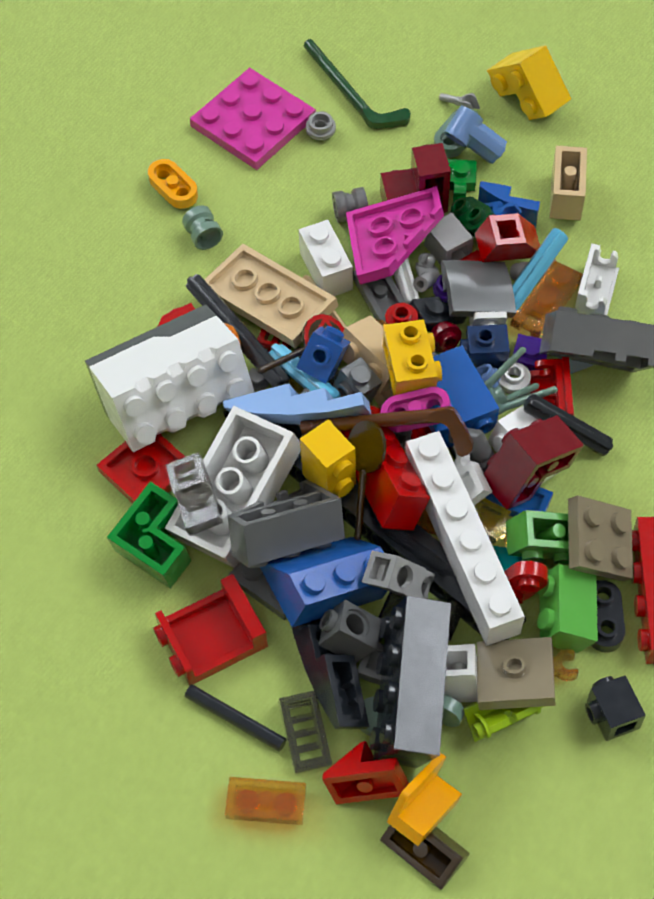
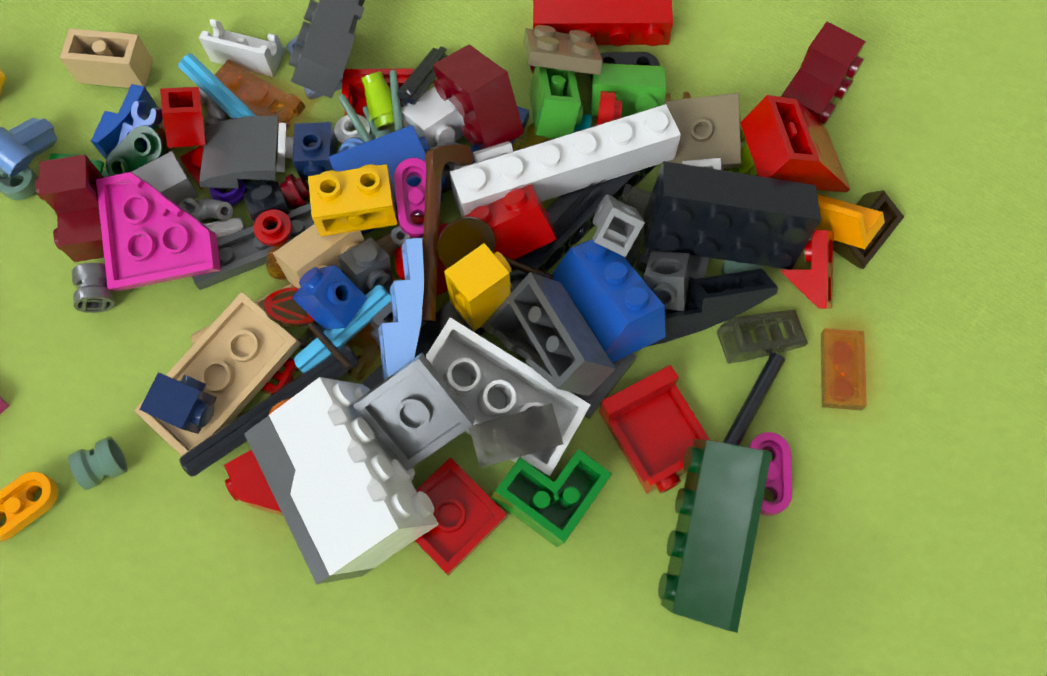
camera: 90 degrees left, 10 degrees up
(109, 653) = (714, 533): none -> dark green slope
(167, 720) = (779, 473): none -> dark pink plate
(211, 412) = (414, 412): none -> plate
(240, 266) = (179, 402): none -> dark blue brick
(326, 258) = (170, 313): white brick -> none
(499, 765) = (792, 145): none -> red slope
(532, 353) = (322, 110): dark purple plate -> none
(537, 384) = (378, 99): none -> lime cone
(592, 799) = (826, 70): none -> dark red brick
(614, 707) = (723, 63): black brick -> none

